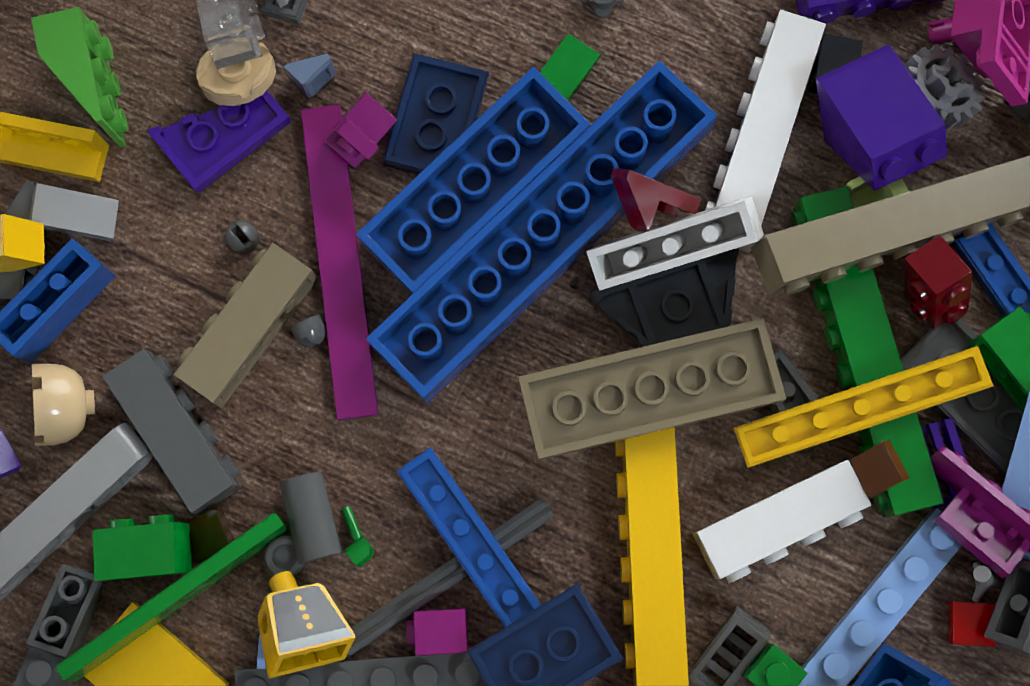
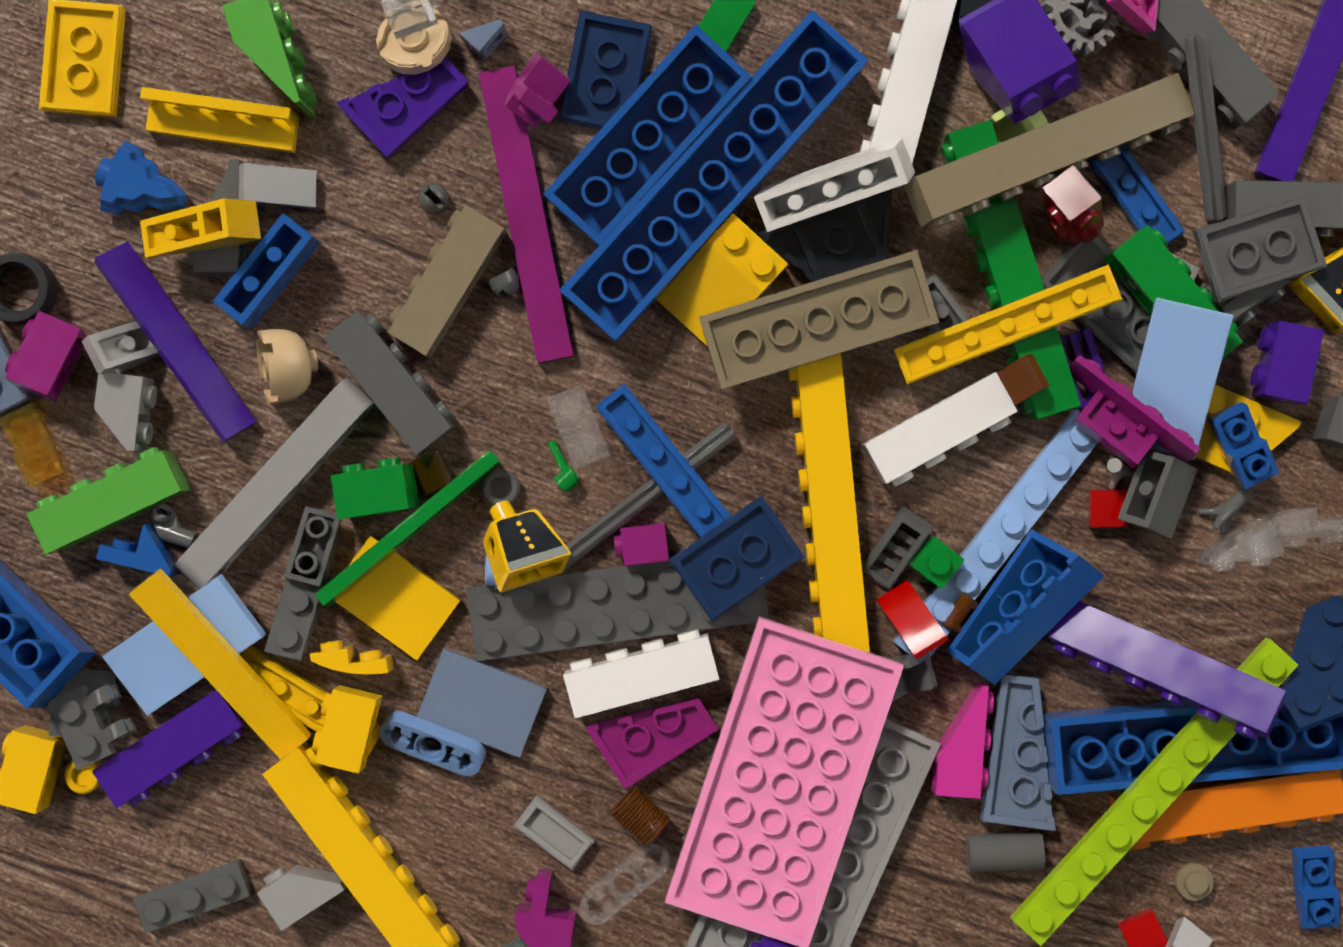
camera: 10 degrees left, 10 degrees up
(310, 517) = (521, 452): dark grey brick -> none
(375, 493) = (579, 427): none -> clear brick
(550, 331) = (724, 273): none -> yellow slope
(645, 196) = (804, 144): dark red slope -> none

